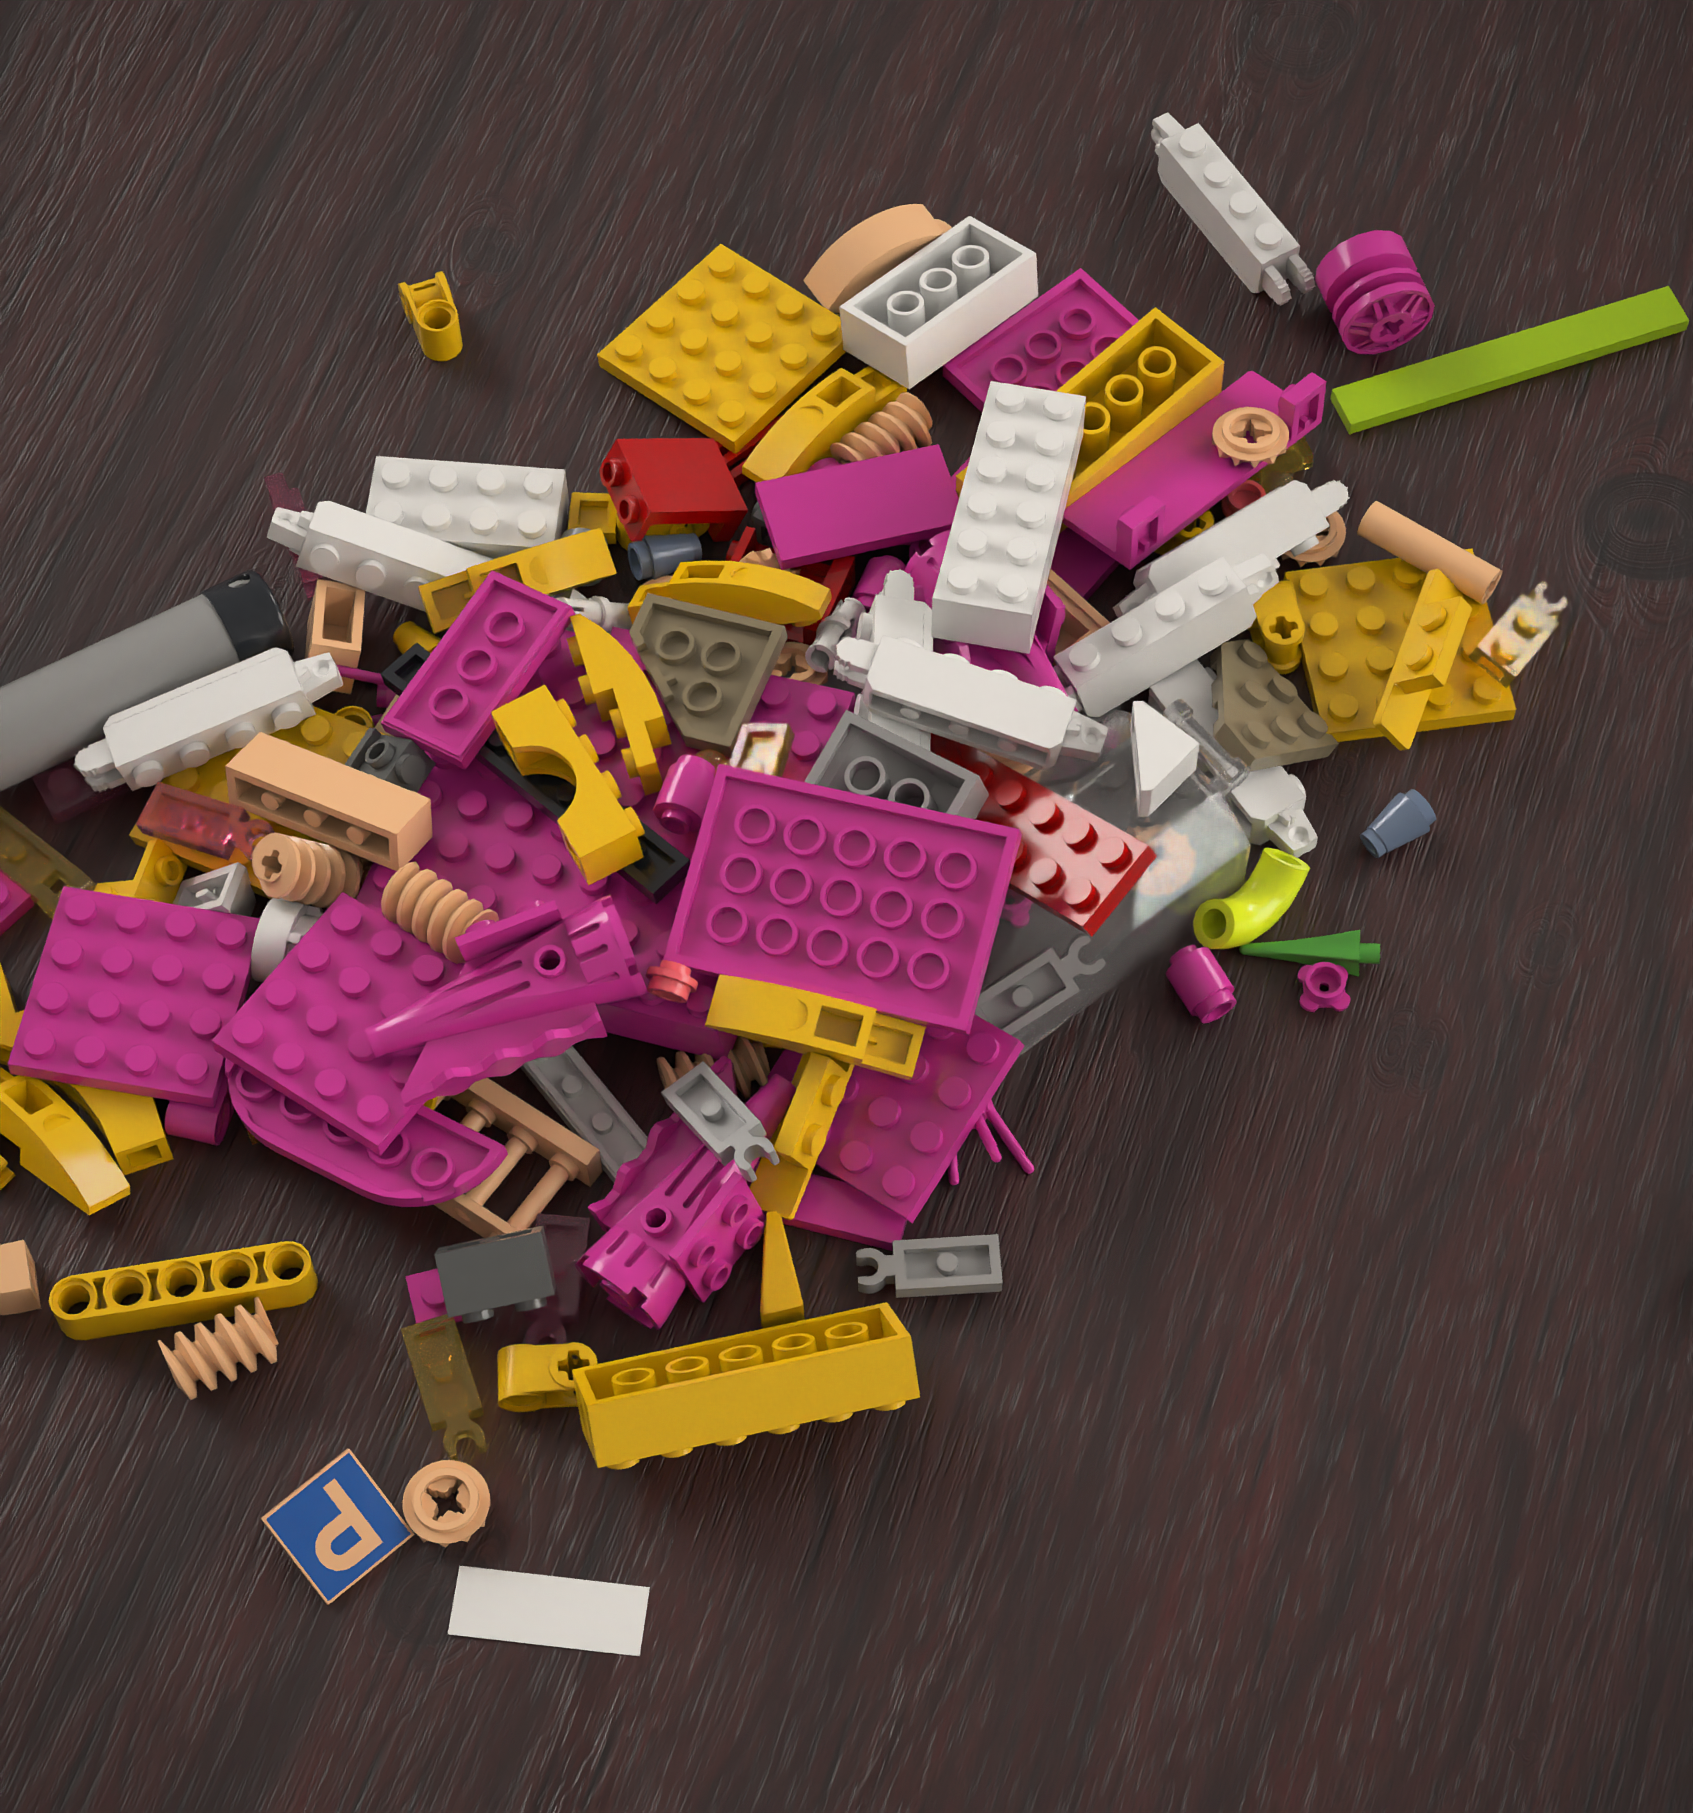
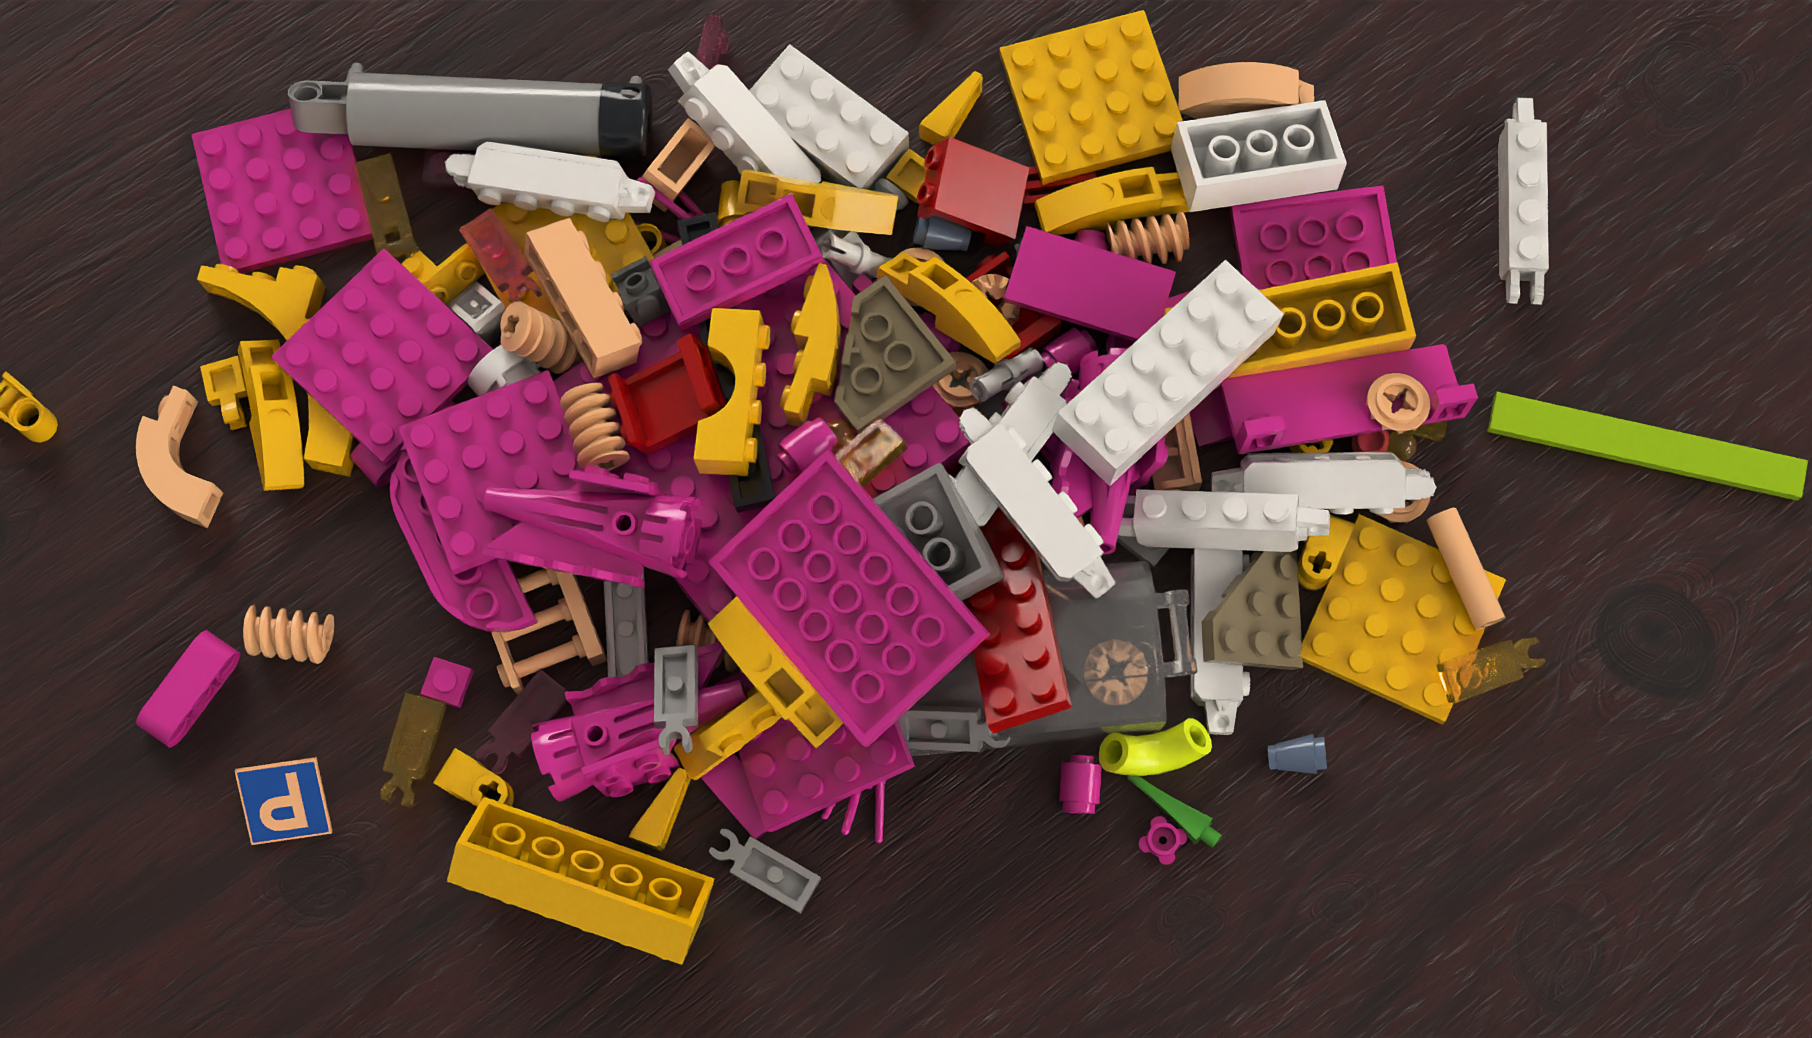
camera: 35 degrees right, 15 degrees up
(138, 1480) = (188, 688): none -> dark pink beam
(161, 1279) = (277, 568): yellow beam -> none
(441, 1480) = (344, 821): light nougat gear -> none
(496, 1274) = (478, 699): dark grey brick -> none
(501, 835) = (667, 397): none -> red panel
(549, 1610) = (381, 938): white sticker -> none
(590, 439) = (951, 112): none -> yellow slope
(671, 981) = (704, 579): coral plate -> none
(1161, 757) = (1130, 632): white slope -> none
(1374, 292) = (1577, 338): dark pink wheel -> none
(1422, 658) = (1400, 648): yellow bracket -> none

